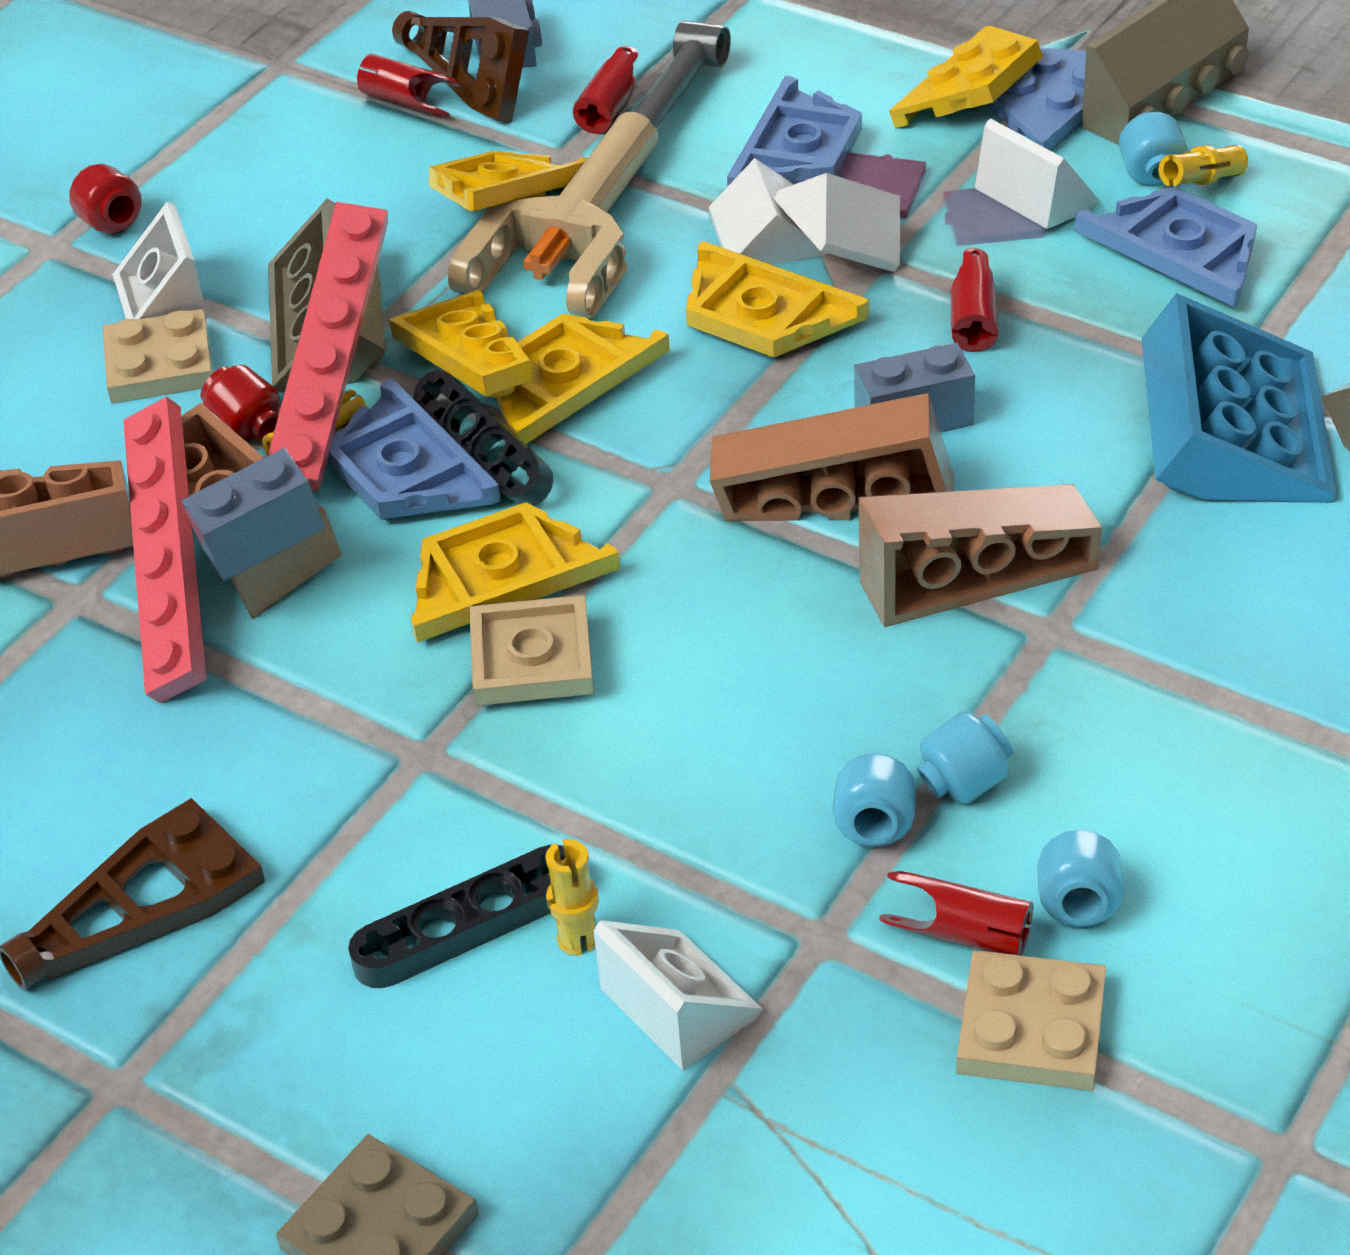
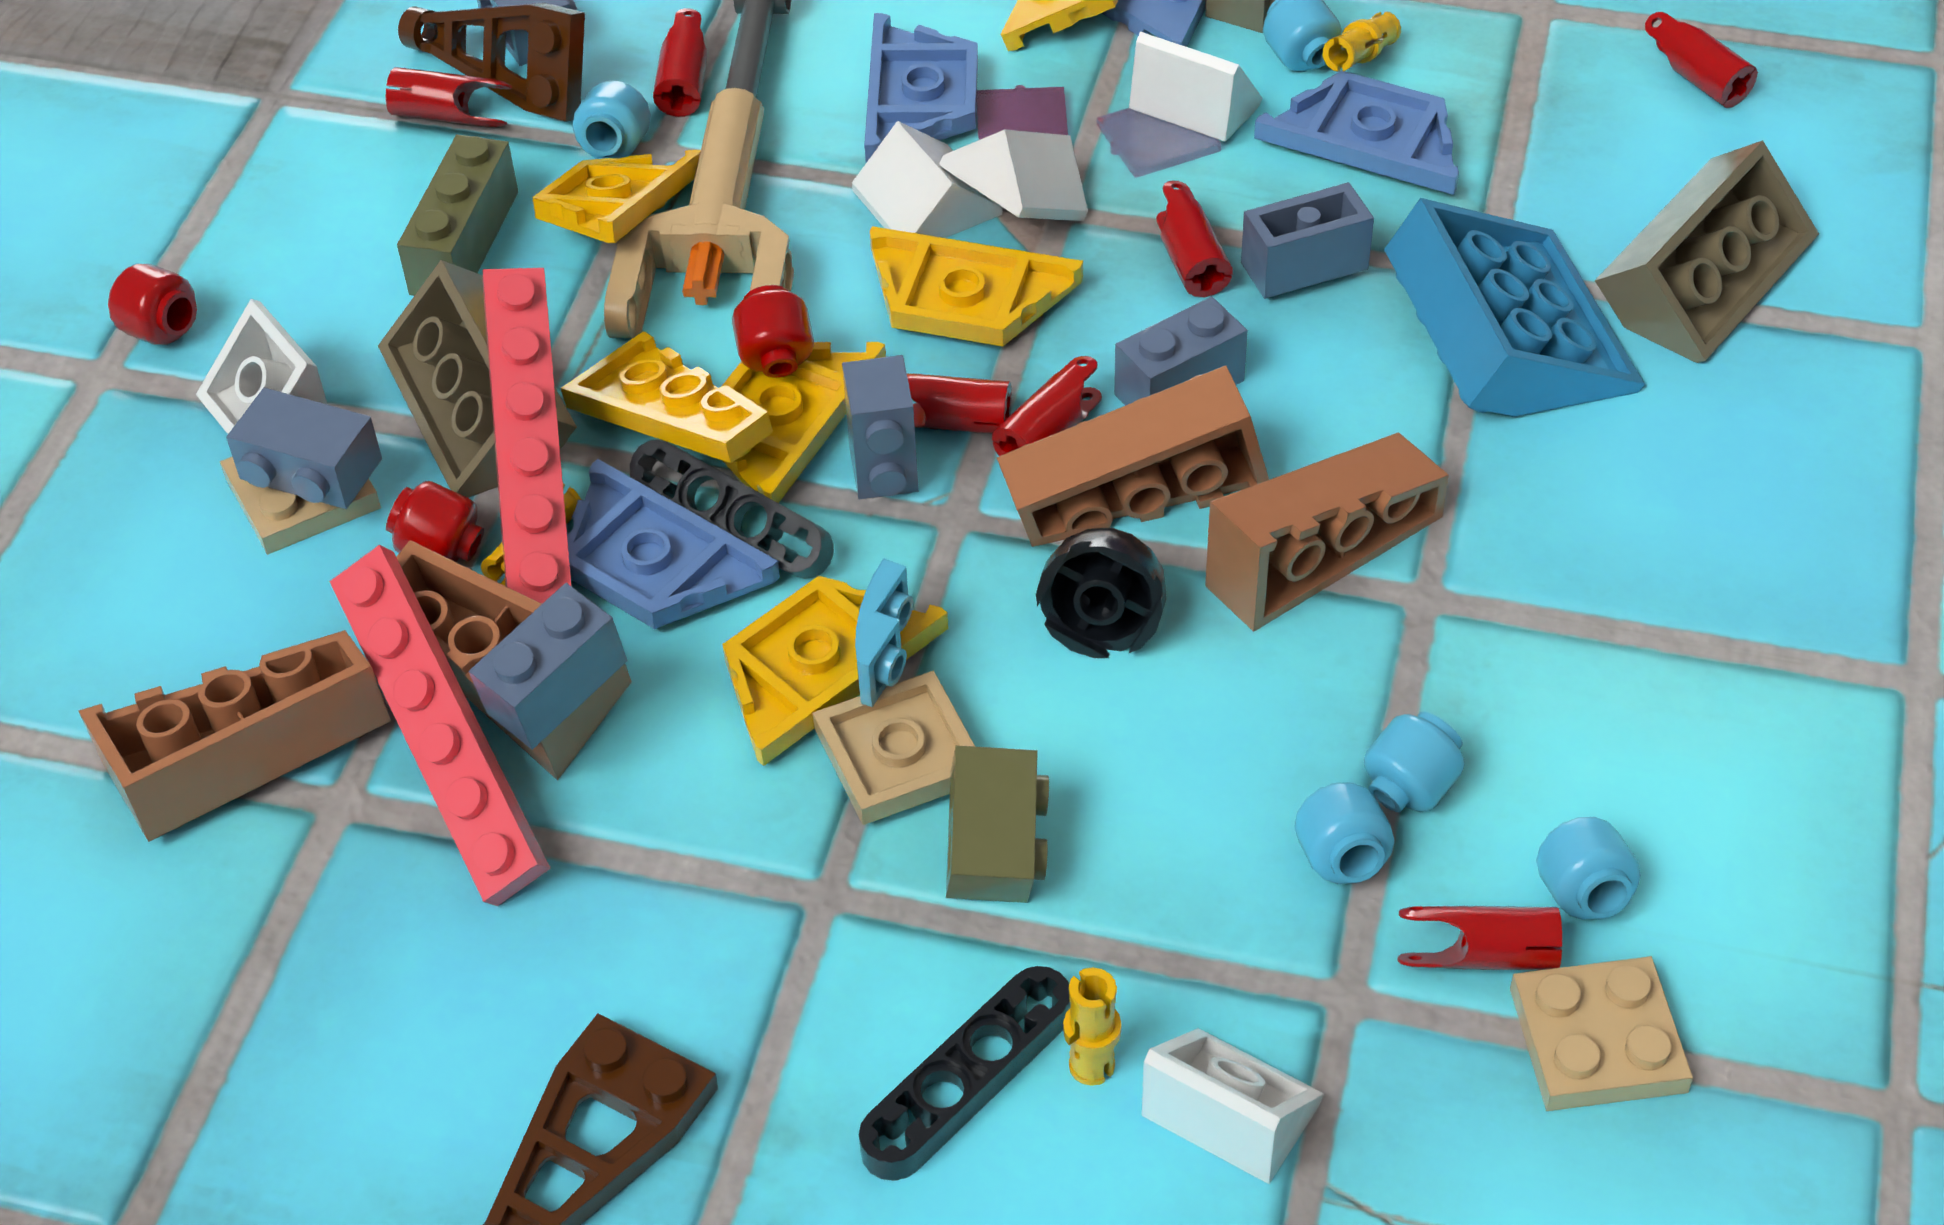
camera: 20 degrees left, 5 degrees up
(160, 322) = (304, 448): none -> sand blue brick
(377, 165) = (459, 209): none -> olive brick
(529, 123) = (611, 120): none -> medium azure head
(546, 542) = (878, 628): none -> medium azure slope
(570, 301) = (771, 330): none -> red head
(572, 723) = (994, 824): none -> olive brick
(625, 394) = (880, 426): none -> sand blue brick
(703, 391) = (959, 402): none -> red piece
(753, 561) = (1102, 592): none -> black cylinder
(785, 406) = (1051, 408): none -> red piece
(1071, 316) = (1306, 240): none -> sand blue brick

